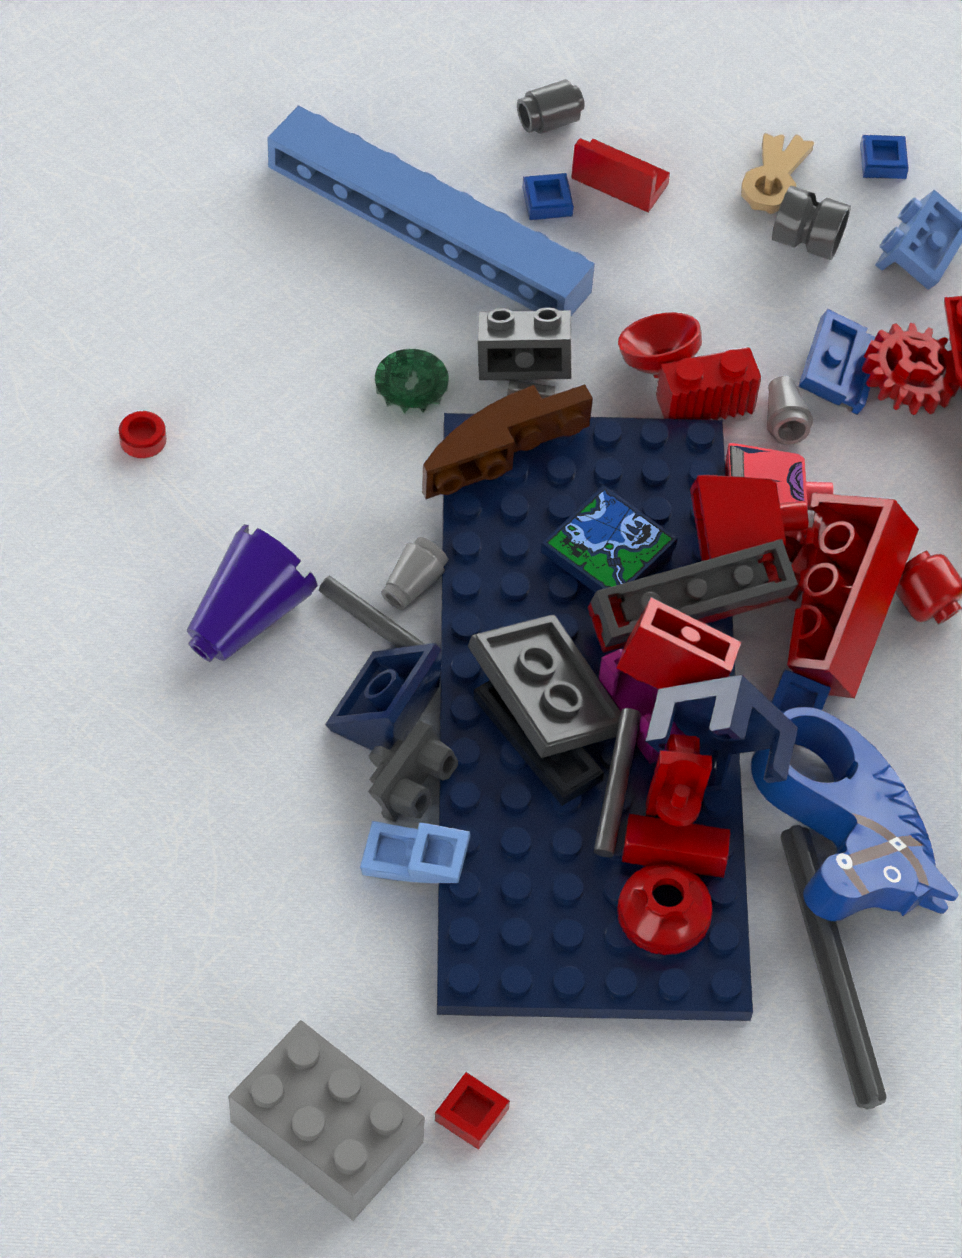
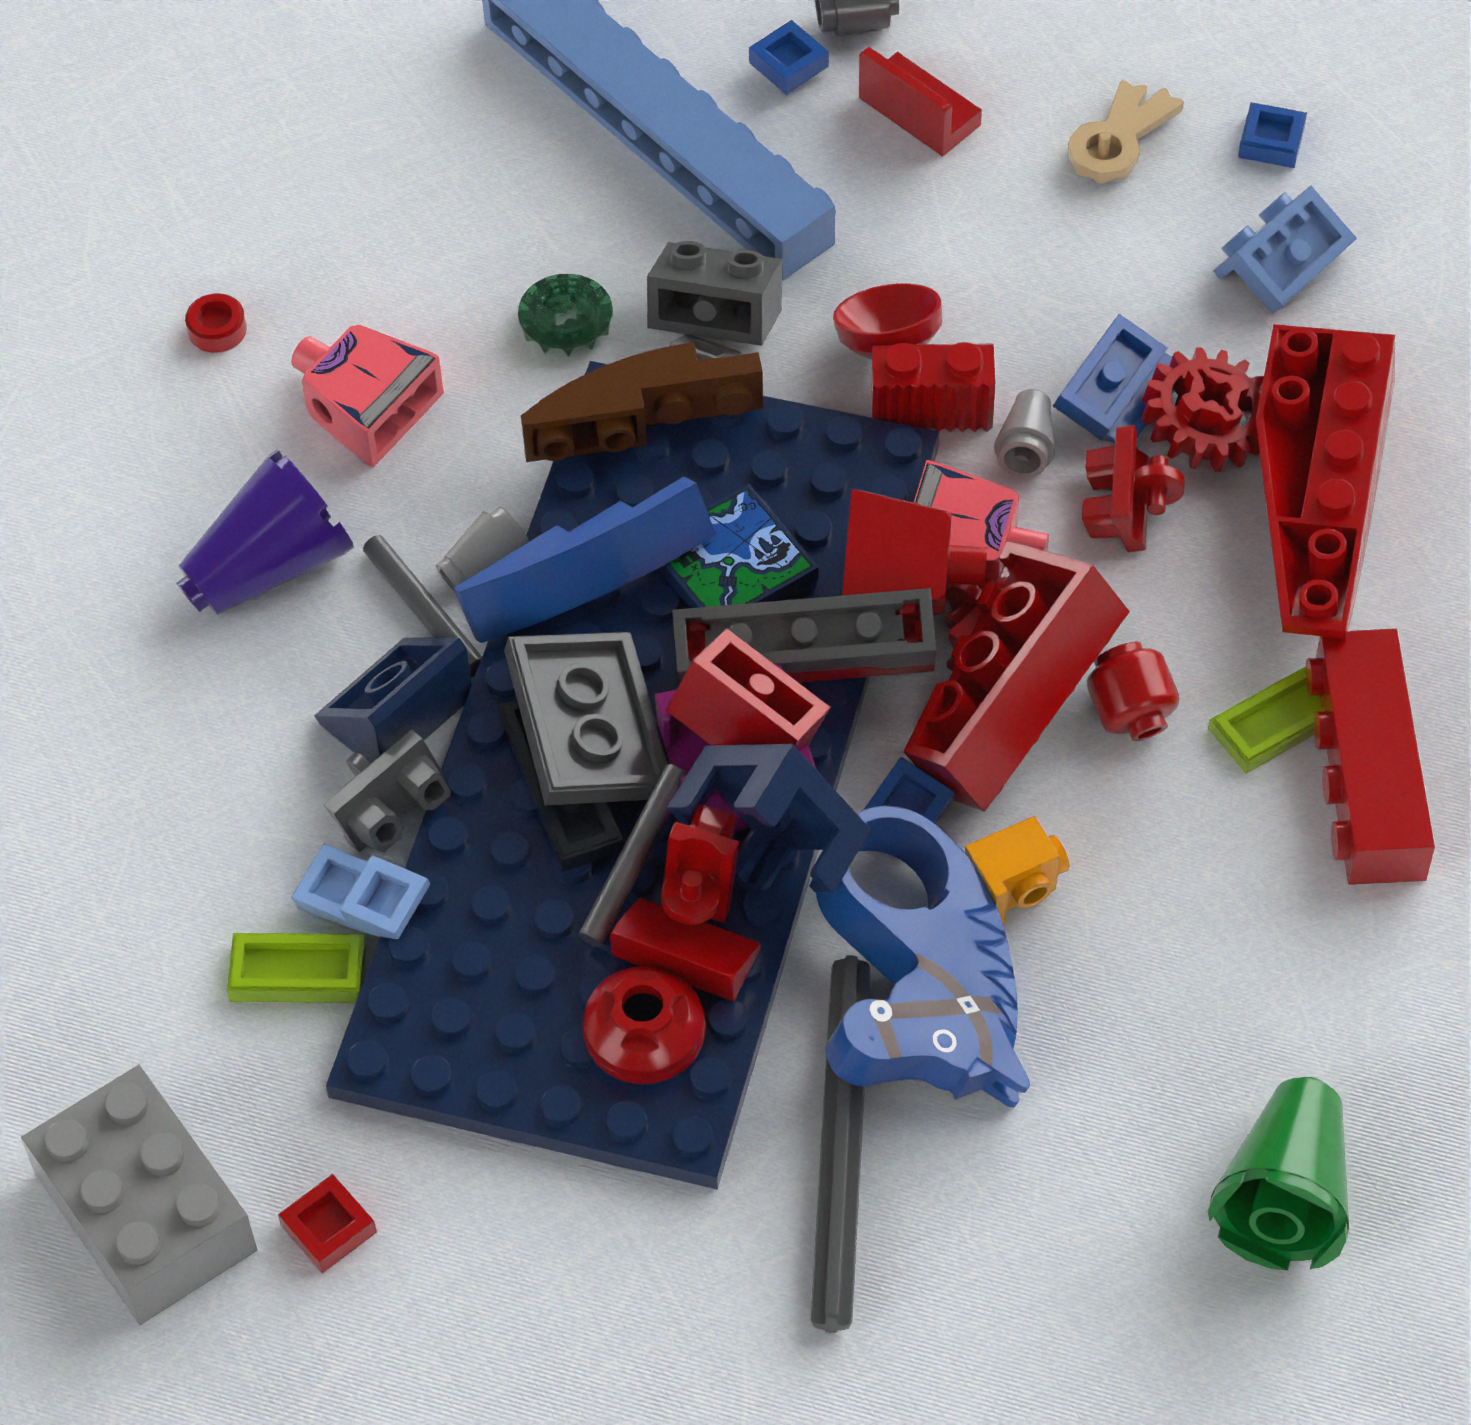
camera: 20 degrees right, 0 degrees up
(281, 464) = (367, 388): none -> coral torso
(380, 920) = (296, 967): none -> lime tile
(501, 572) = (588, 562): none -> blue slope
(513, 155) = (788, 57): none -> blue plate
(547, 196) = (818, 115): blue tile -> none
(810, 222) = (1144, 204): dark grey wheel -> none
(875, 457) = (1138, 488): none -> red hips
(895, 730) = (1019, 864): none -> light orange brick

